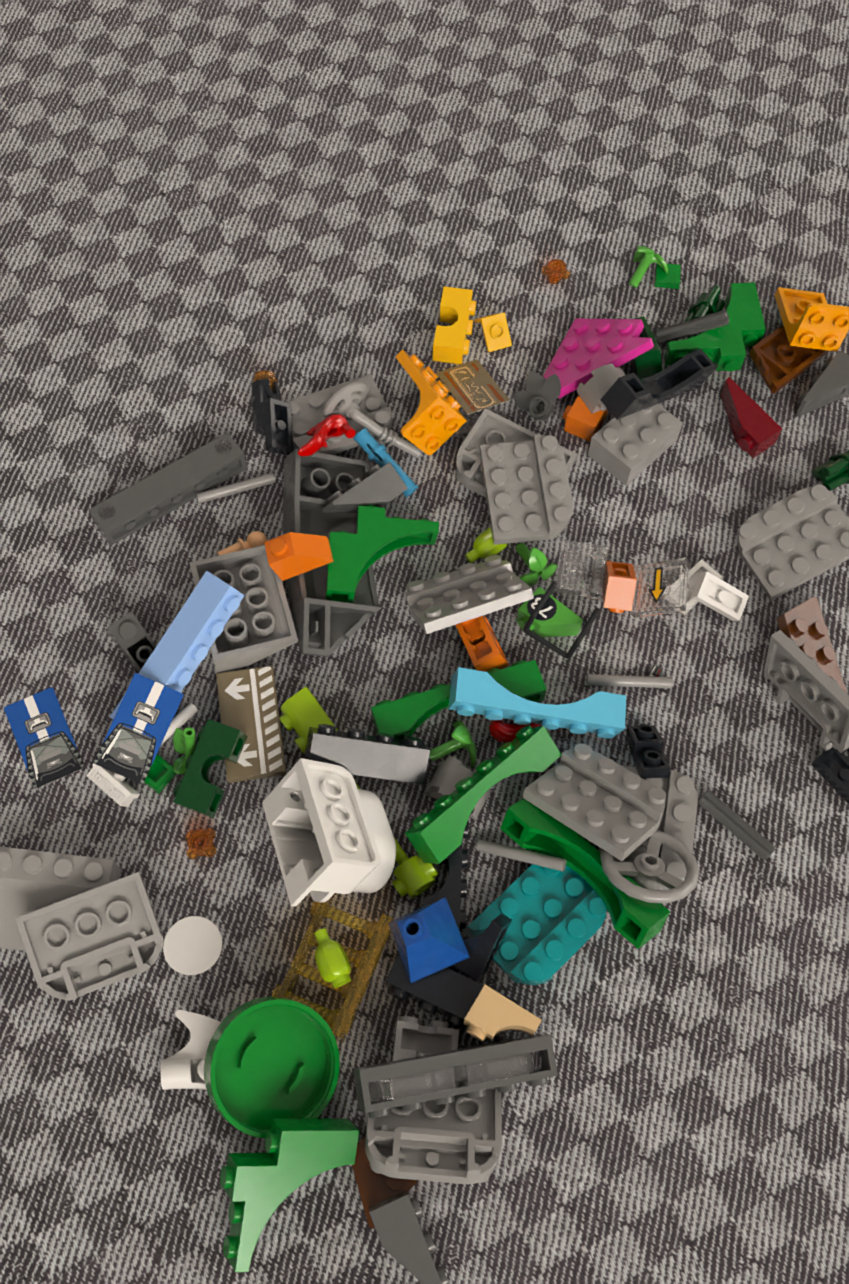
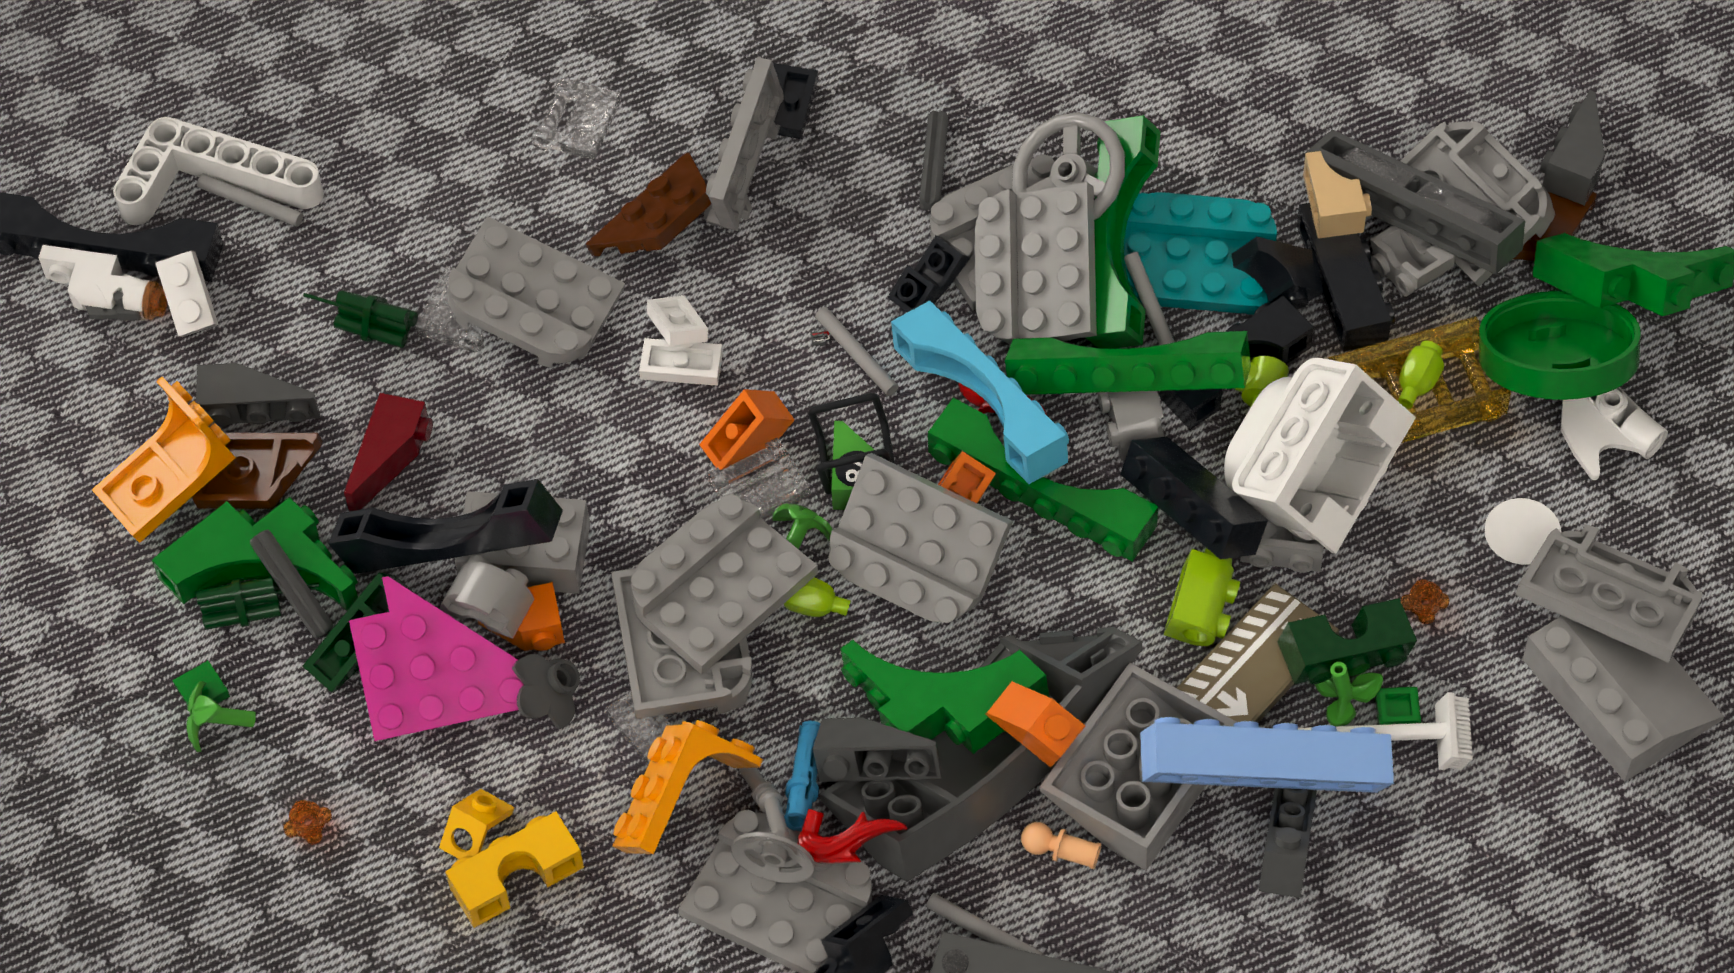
camera: 125 degrees left, 5 degrees down
(43, 738) = (1473, 860): sticker -> none
(138, 728) = (1379, 730): sticker -> none
(428, 940) = (1325, 298): blue slope -> none
(461, 739) = (1080, 443): bright green plant -> none
(472, 386) = (599, 769): dark tan sticker -> none
(660, 588) = (713, 380): clear tile -> none

